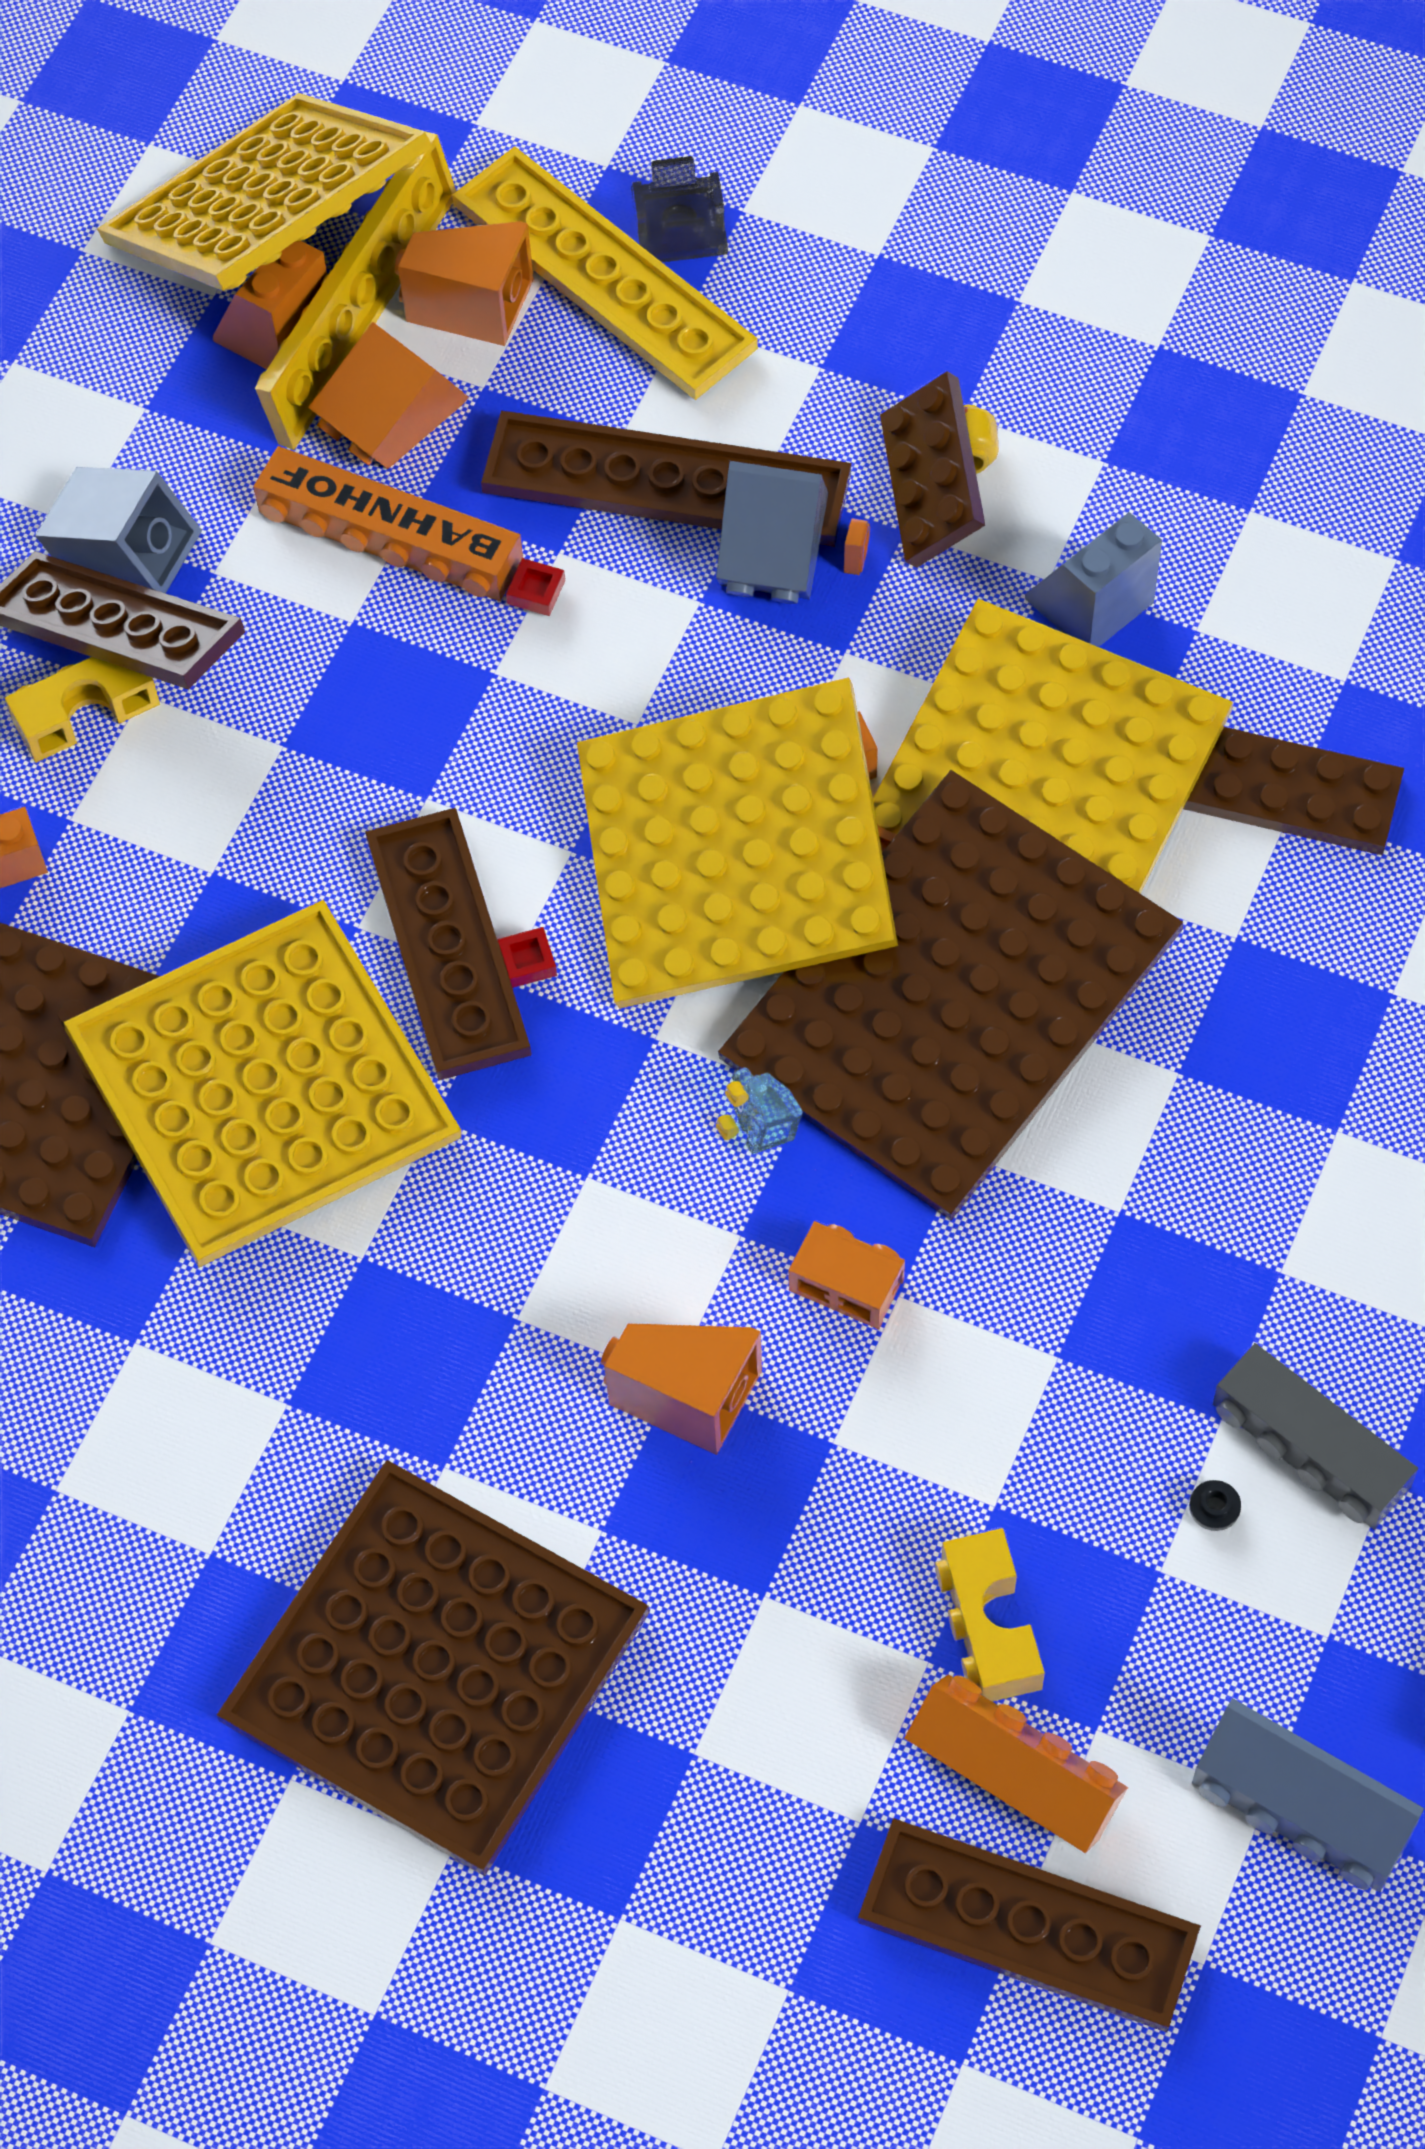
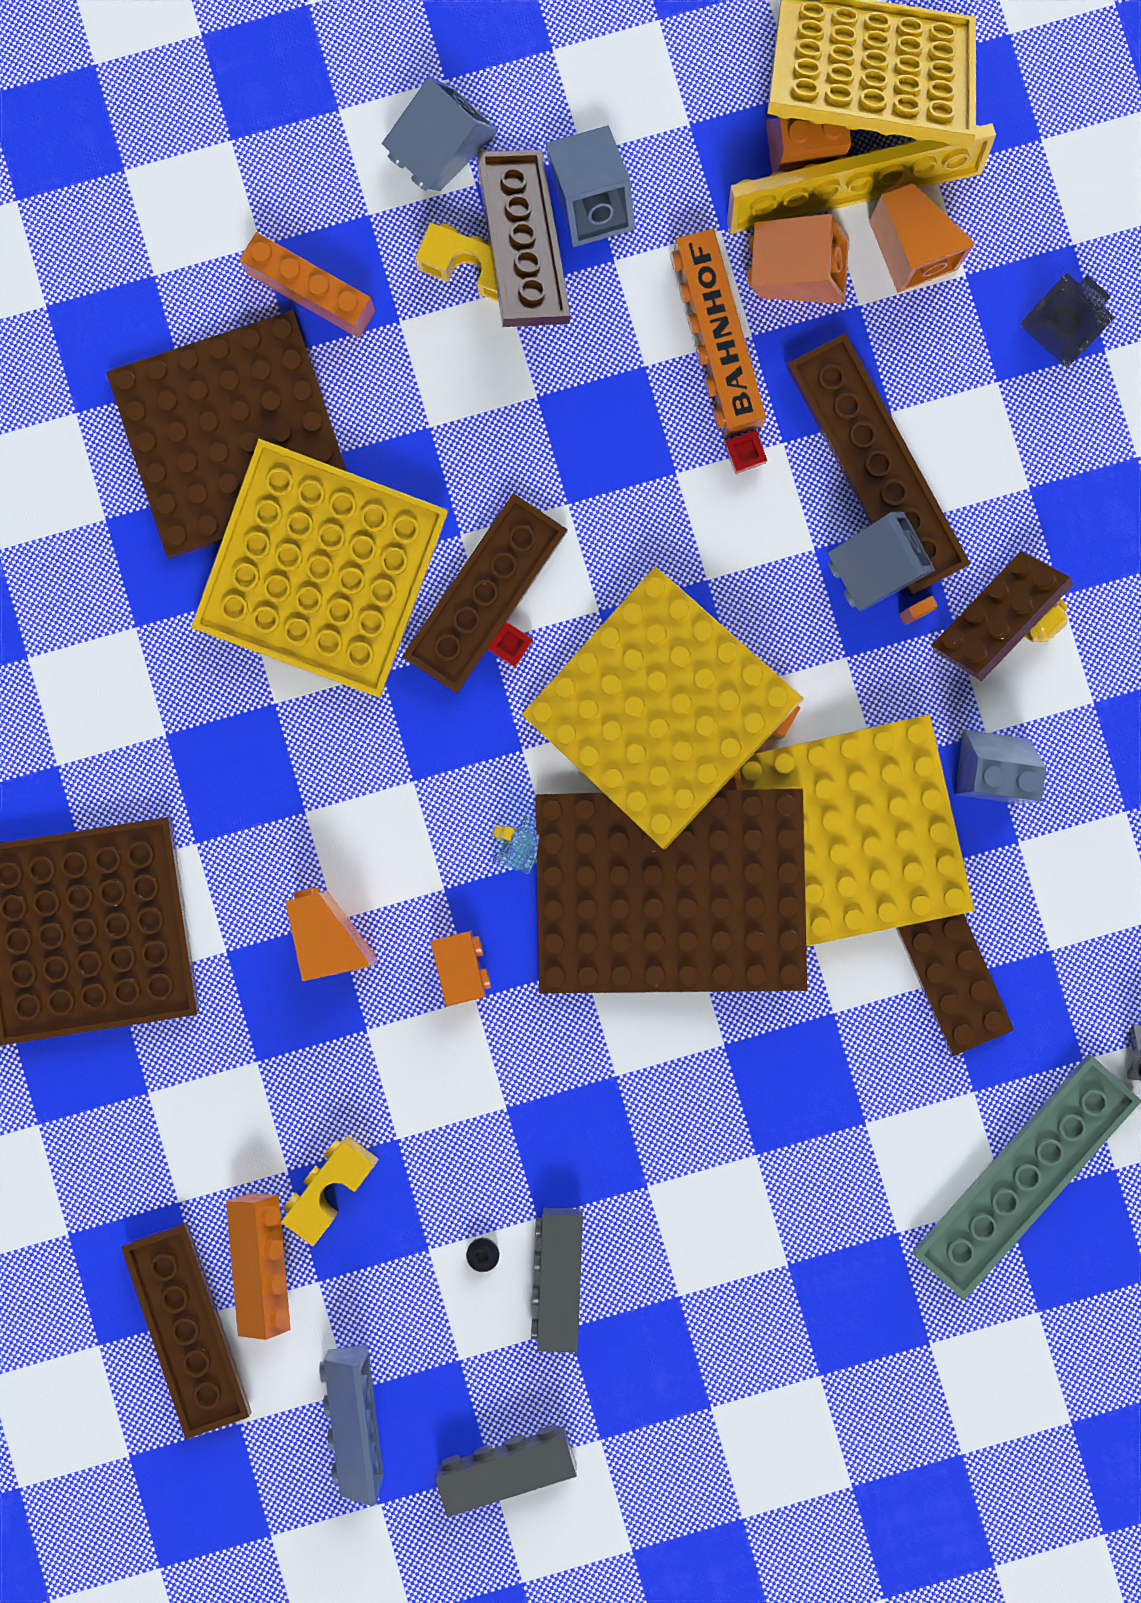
camera: 45 degrees right, 25 degrees up
(609, 274) = (992, 308): yellow plate -> none

